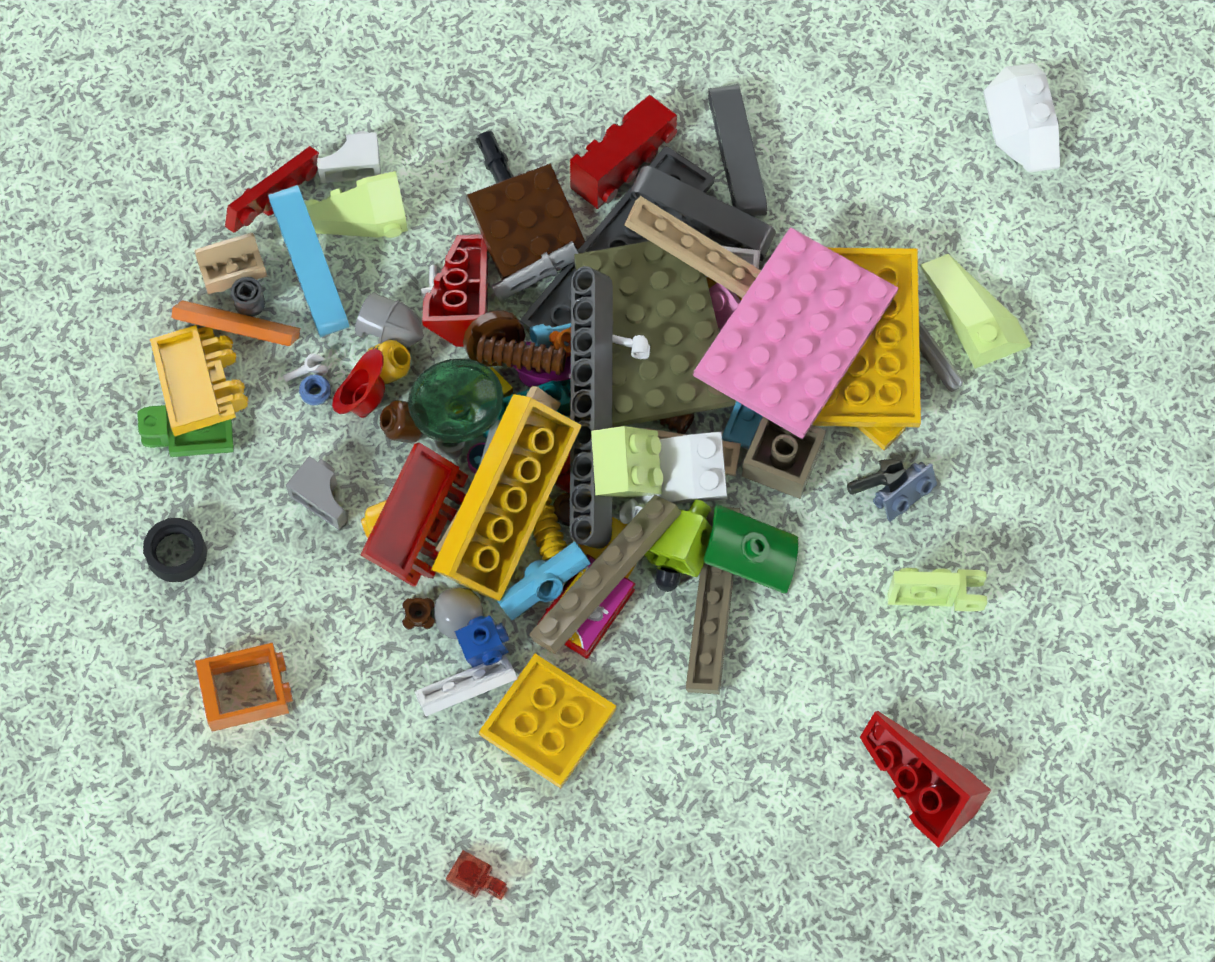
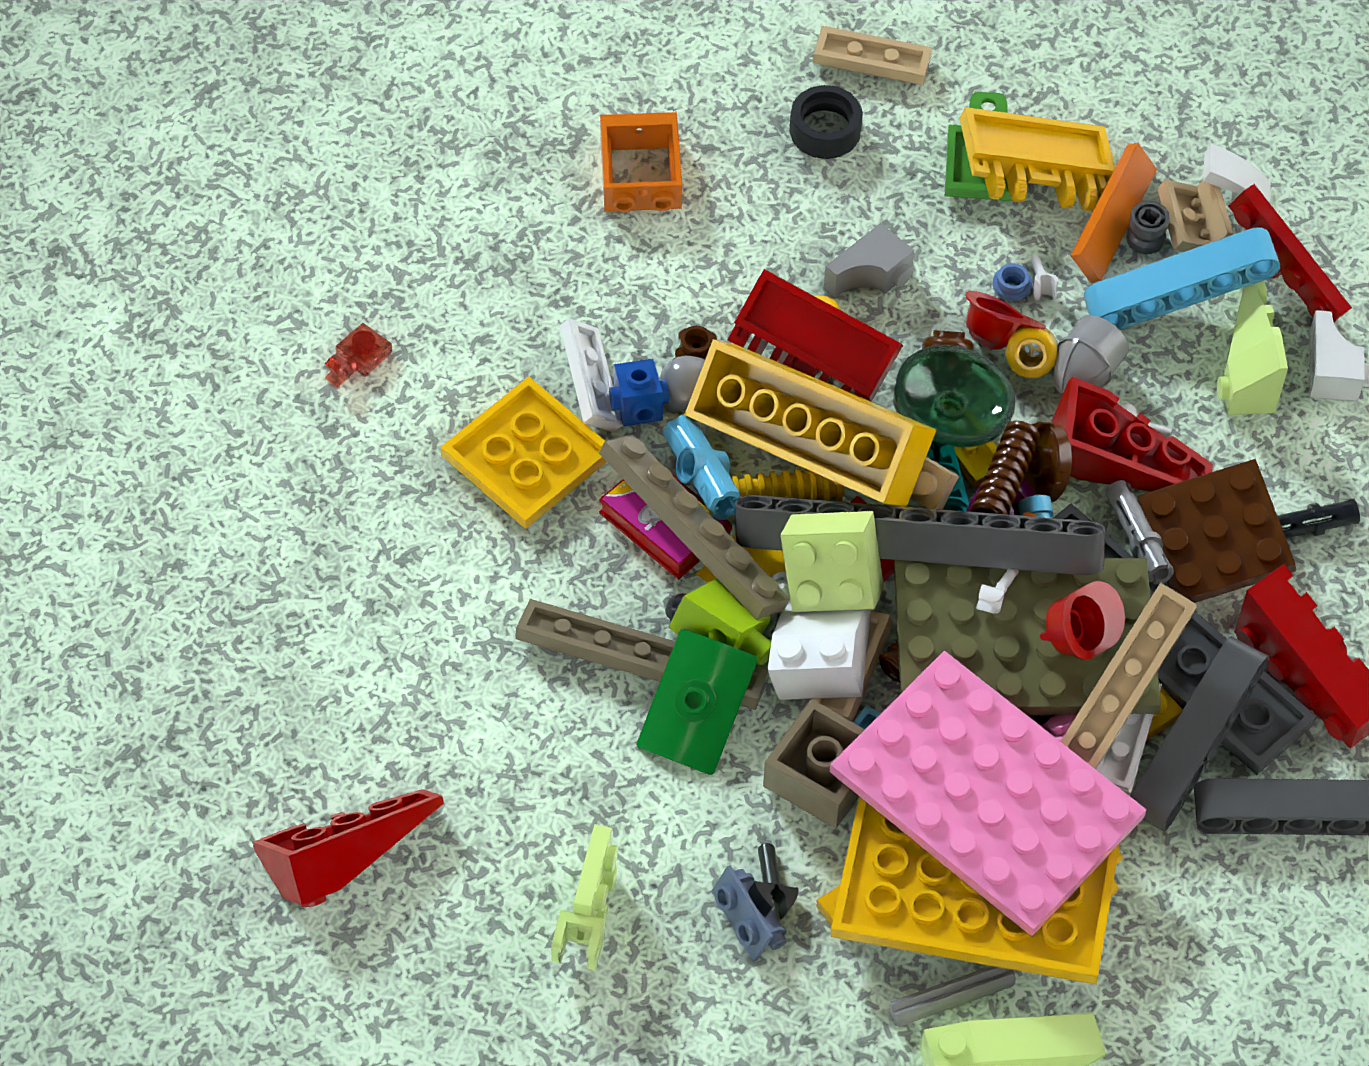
camera: 100 degrees right, 10 degrees down
(96, 525) = (872, 55): none -> tan plate
(193, 237) = (1232, 172): none -> white slope
(654, 282) = (1085, 621): none -> red piece

